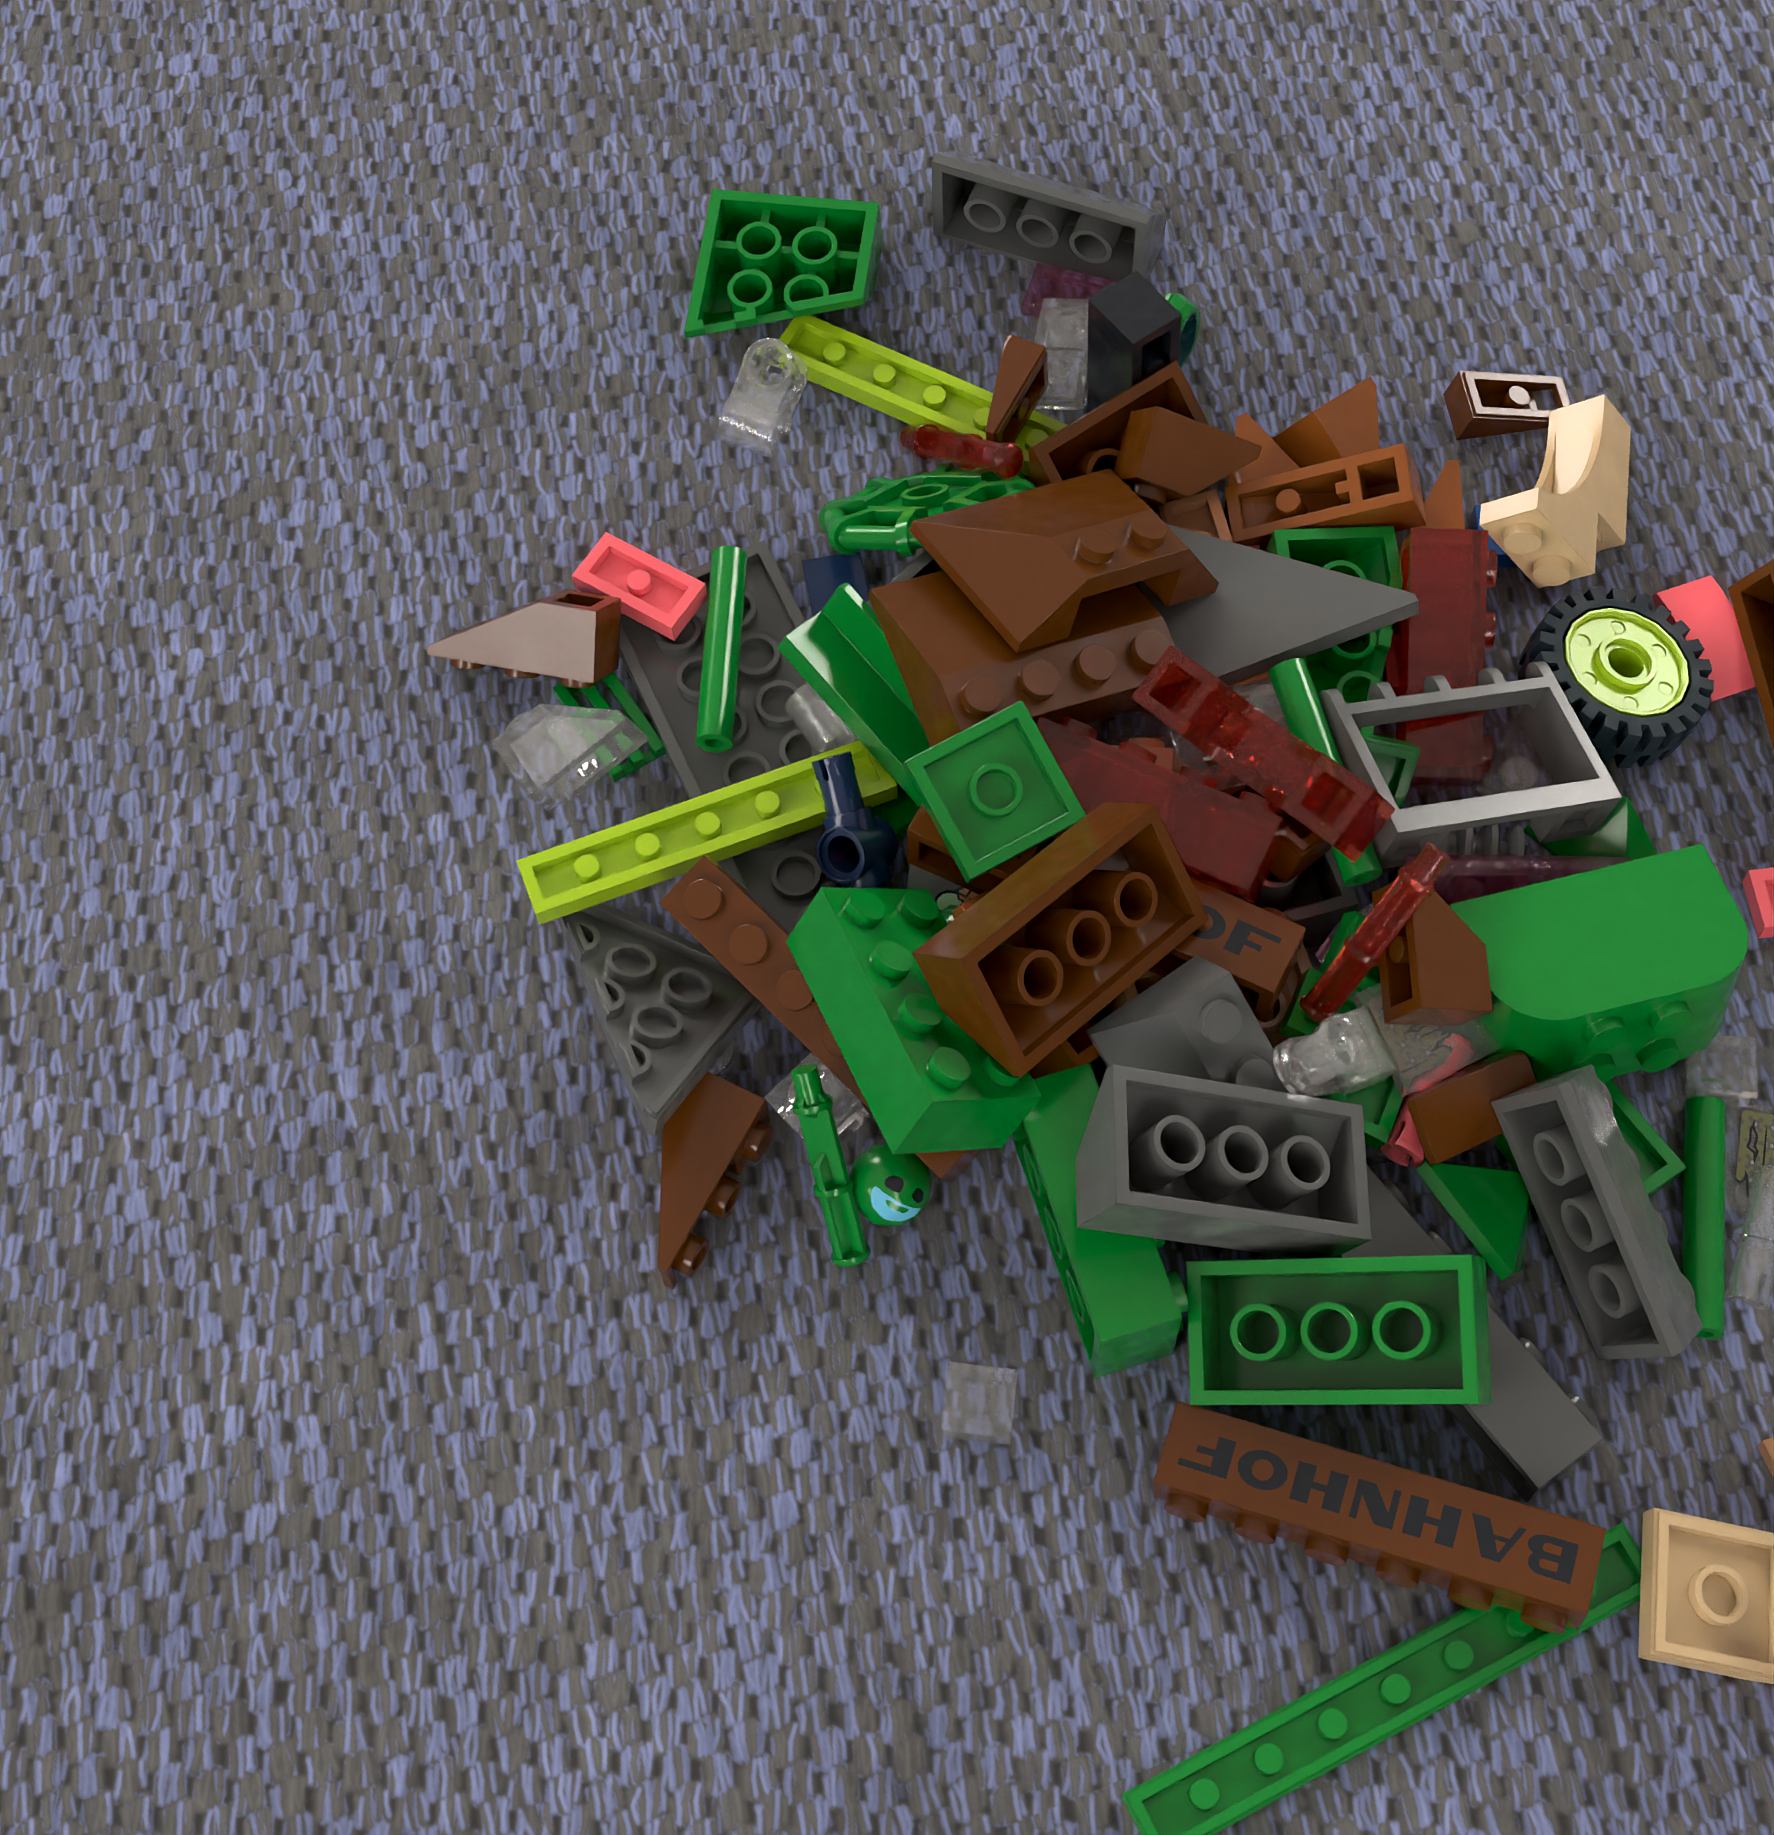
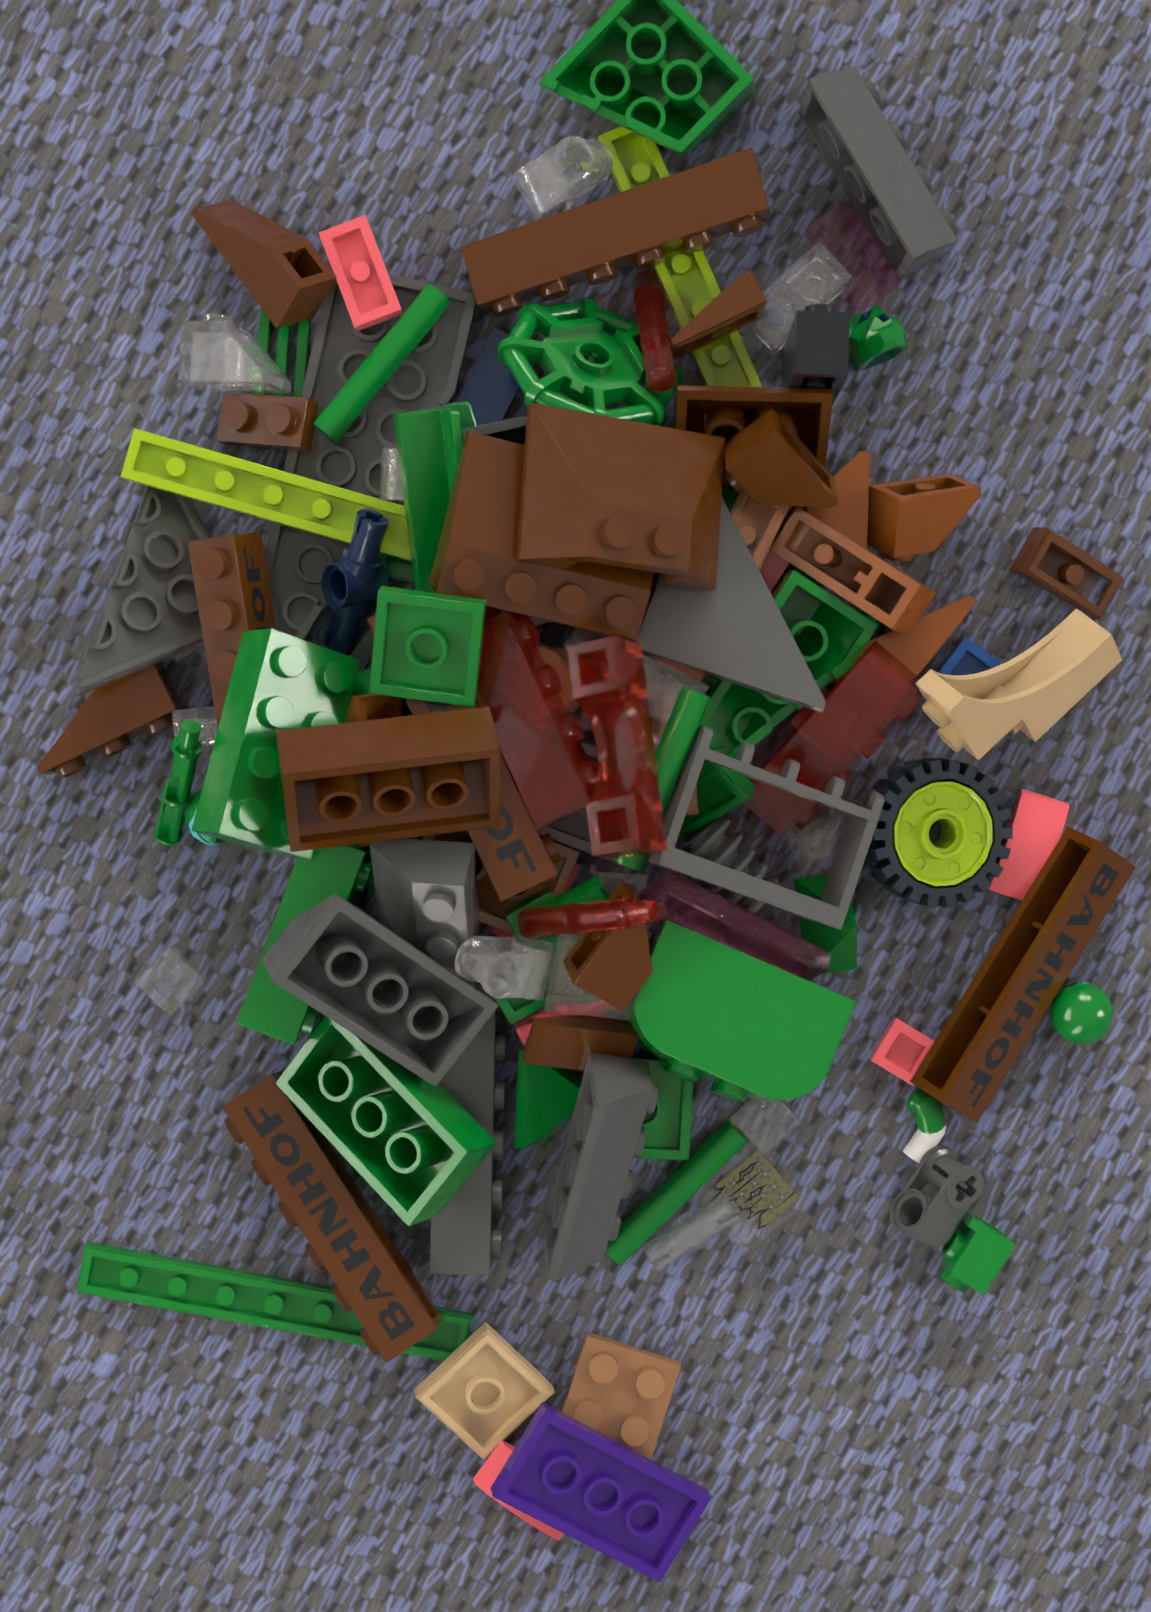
camera: 35 degrees right, 25 degrees up
(646, 777) = (267, 421): none -> reddish brown plate
(856, 400) = (617, 233): none -> reddish brown brick

